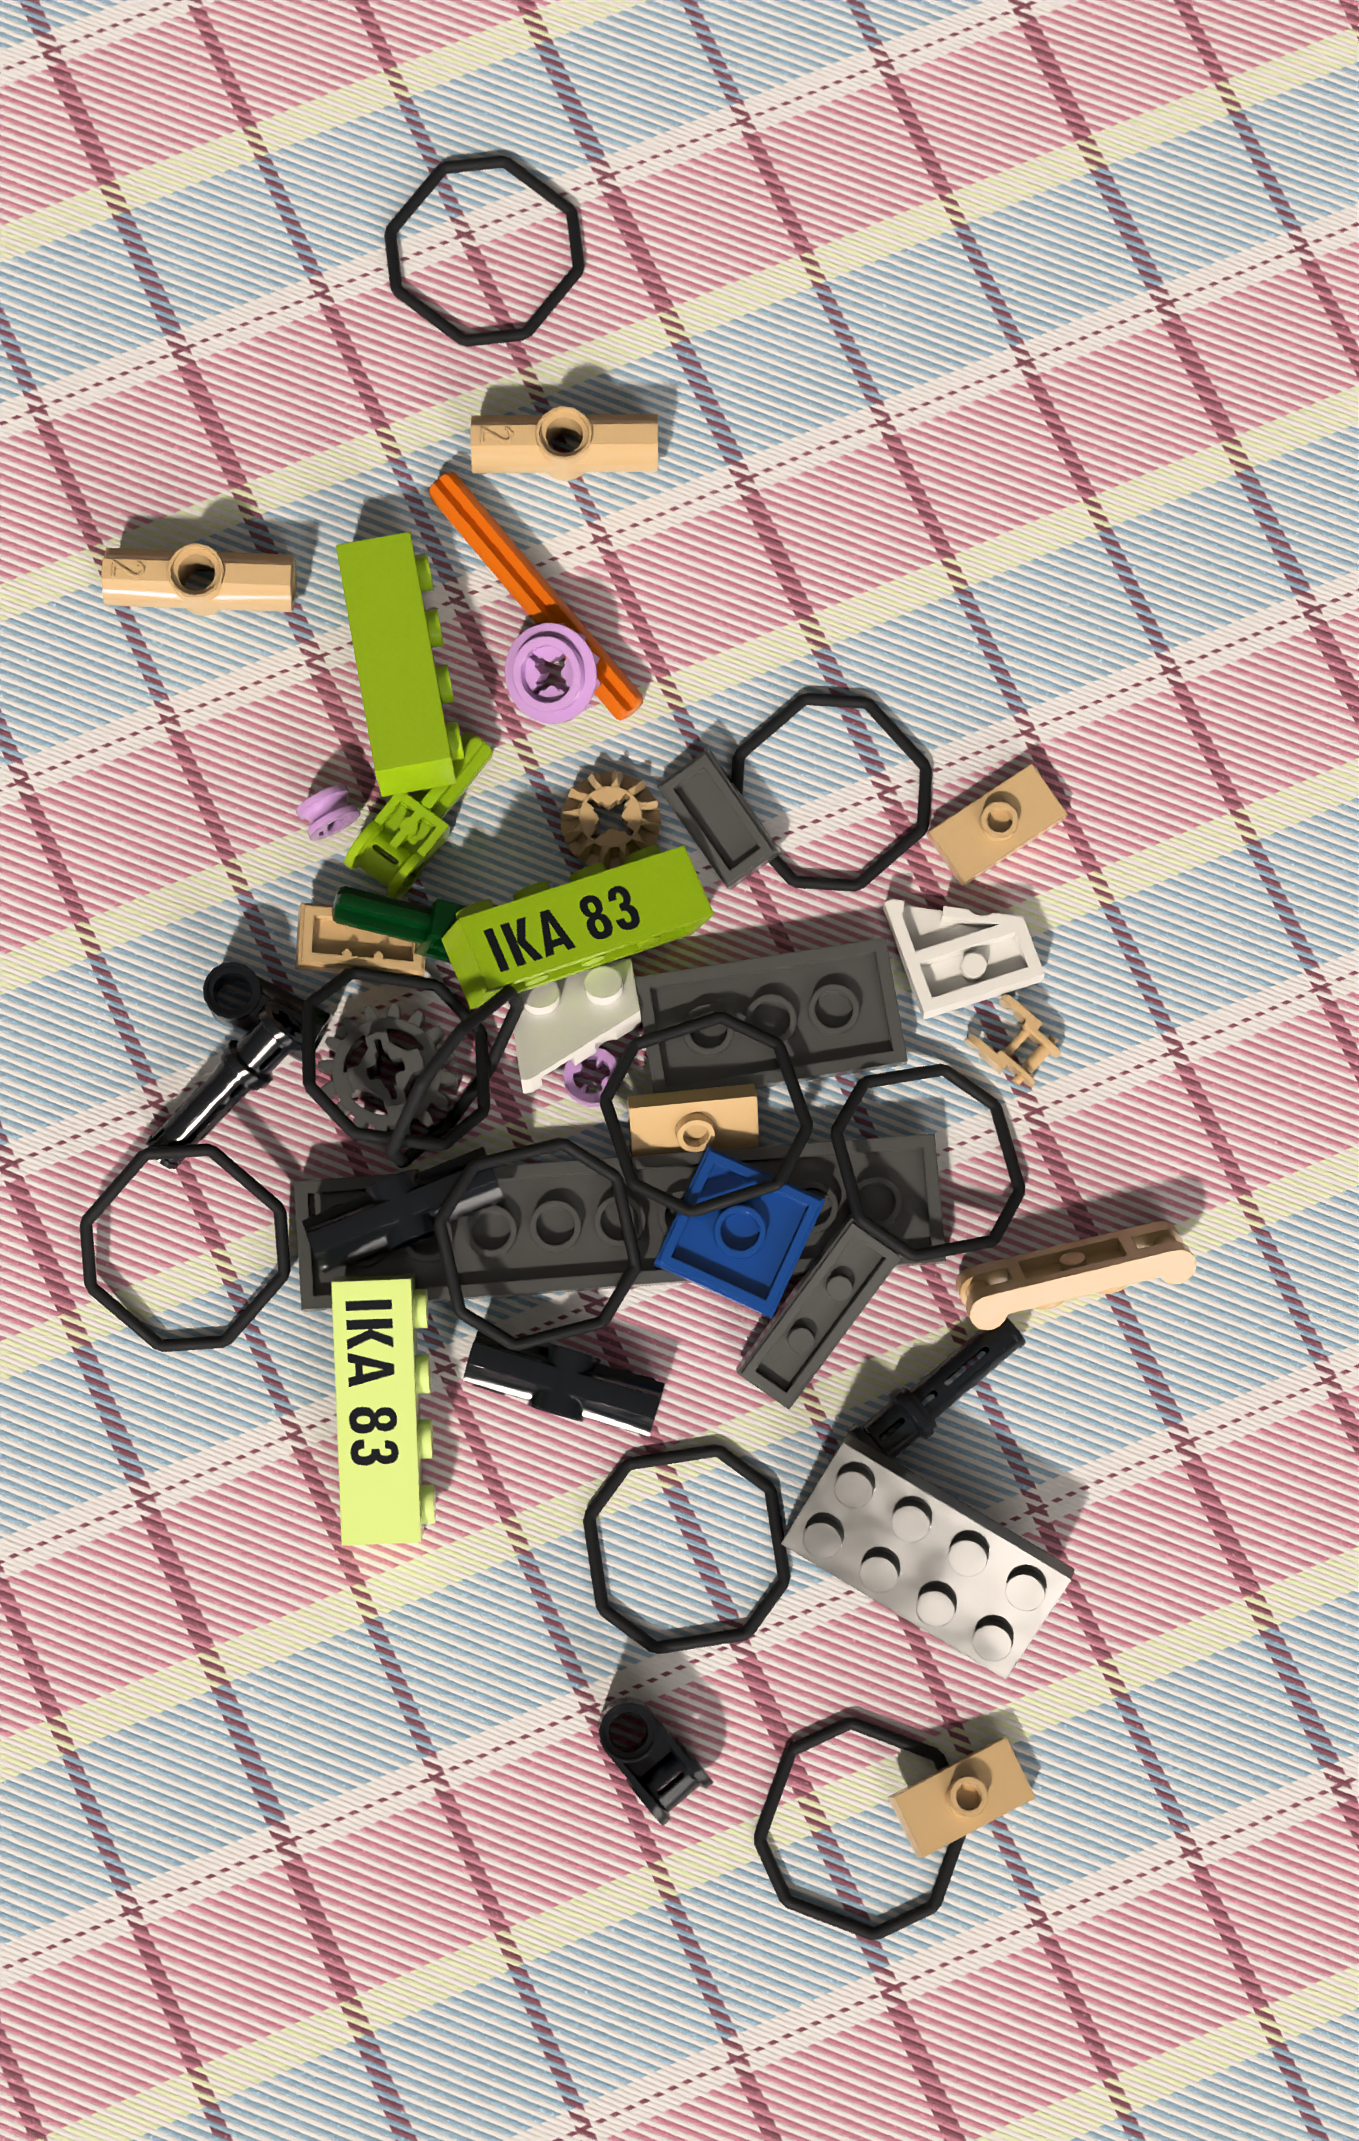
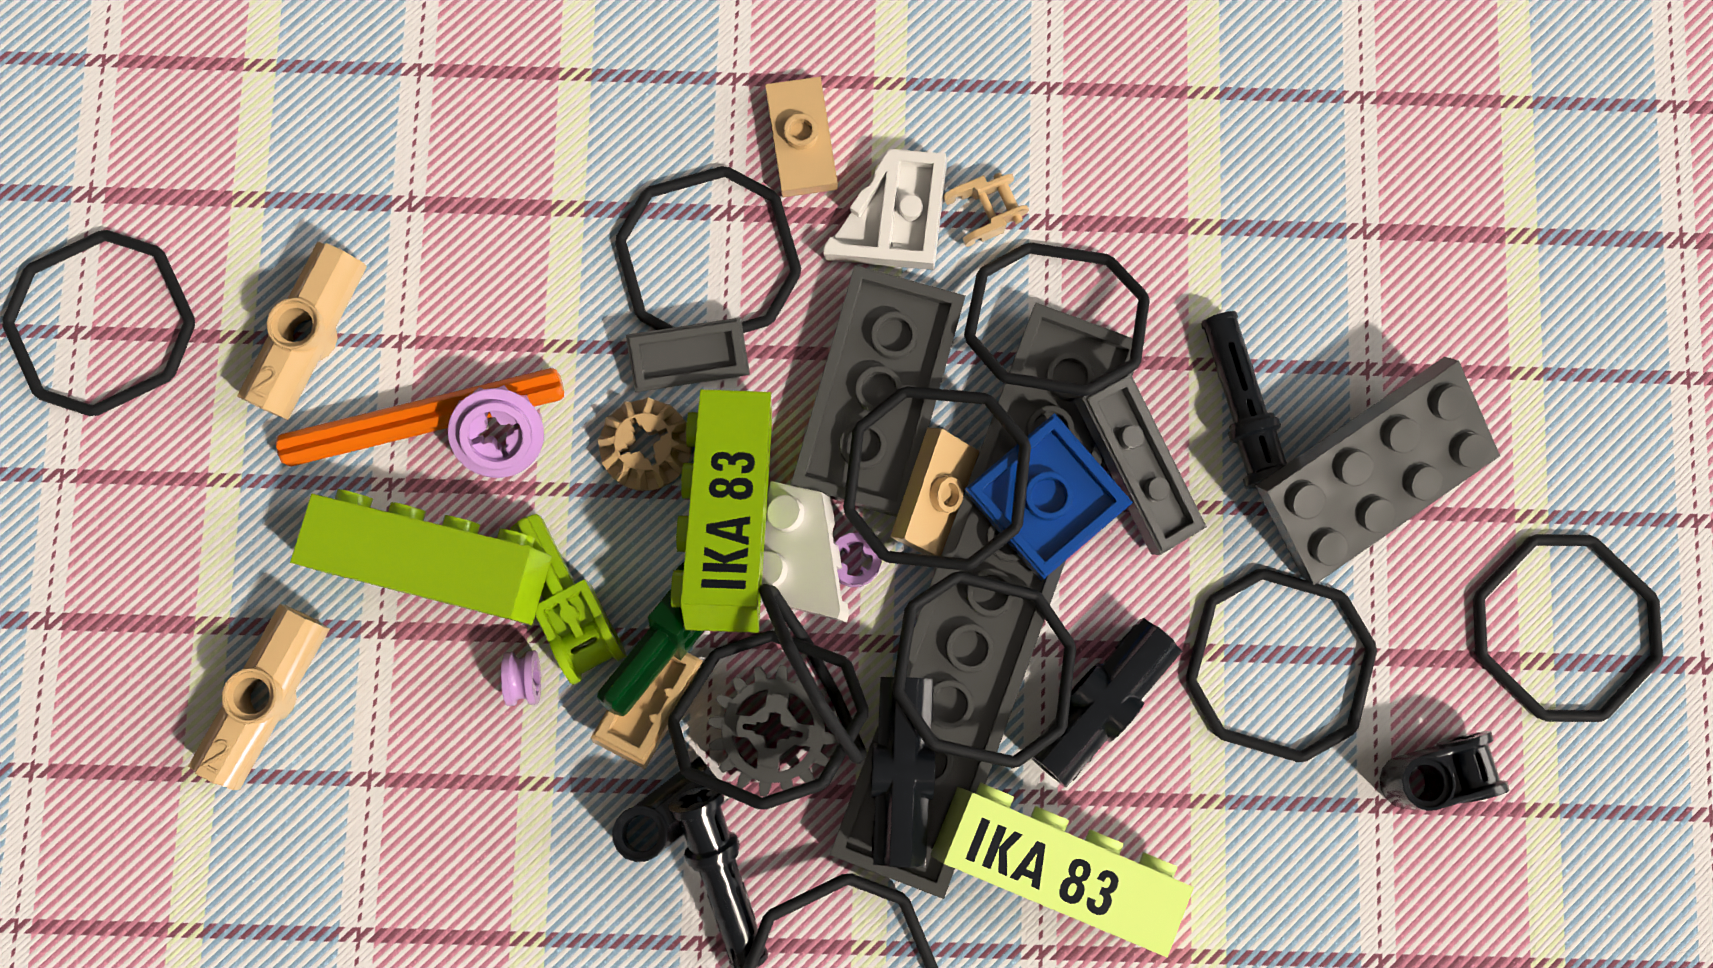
camera: 65 degrees left, 0 degrees up
(961, 1797) = (1581, 535): tan plate -> none
(1073, 1270) = (1198, 247): tan plate -> none

